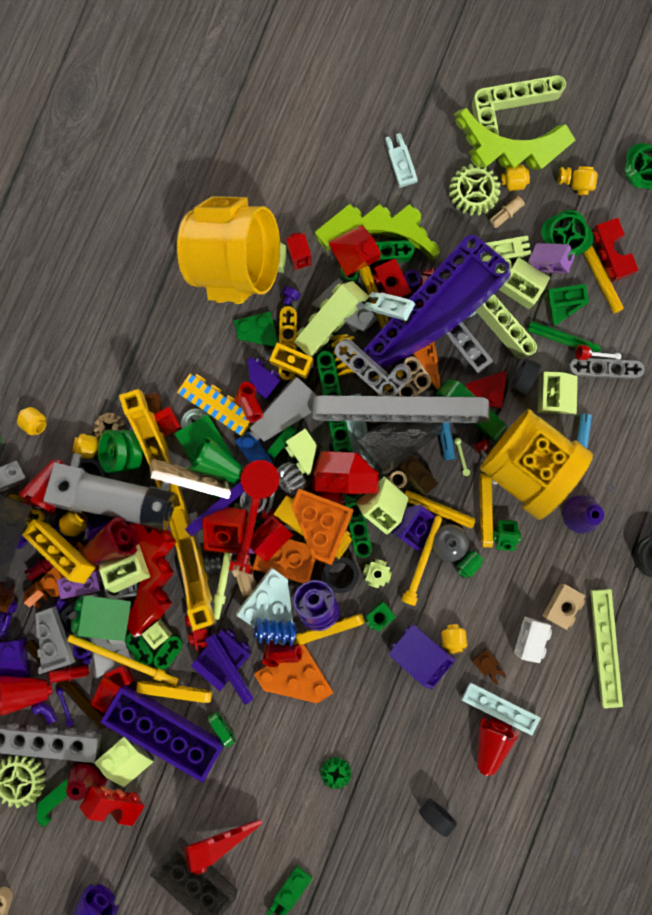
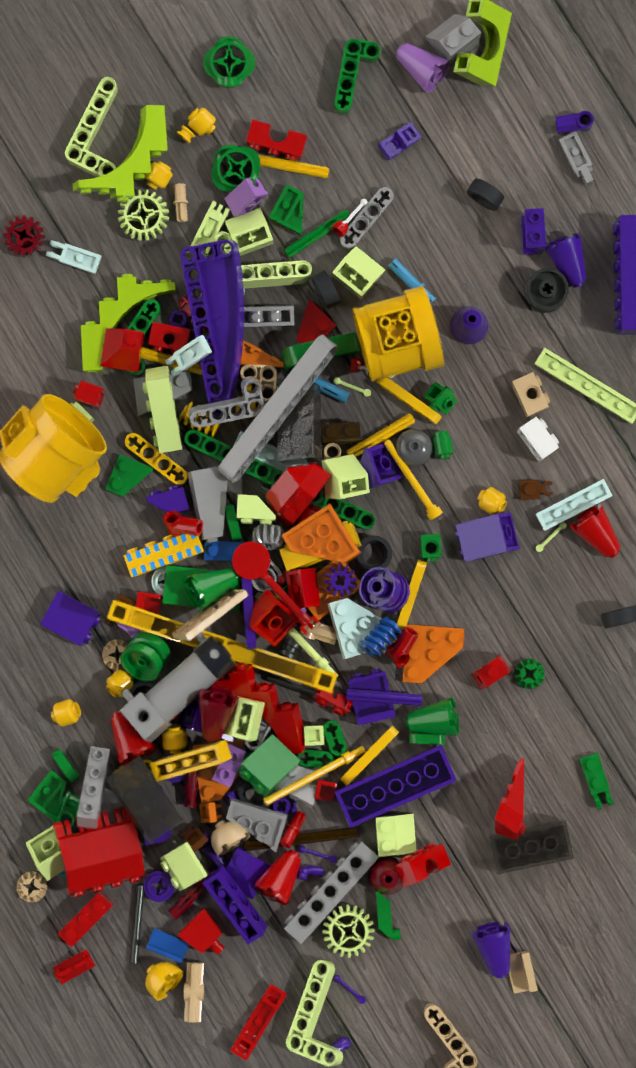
camera: 60 degrees left, 0 degrees up
(22, 625) = (227, 837): none -> tan cylinder
(105, 695) = (332, 811): red tile -> none
(109, 369) = (71, 619): none -> dark purple panel
(241, 724) = (435, 719): none -> green cone
(290, 294) = (118, 427): dark purple tile -> none
(291, 360) = (174, 466): yellow brick -> none
(300, 570) = (347, 580): none -> dark purple gear
(313, 742) = (491, 672): none -> red torso
(369, 570) = (387, 527): yellowish green brick -> none
(393, 103) = (20, 244): none -> dark red gear
(444, 705) = (562, 525): none -> yellowish green hinge

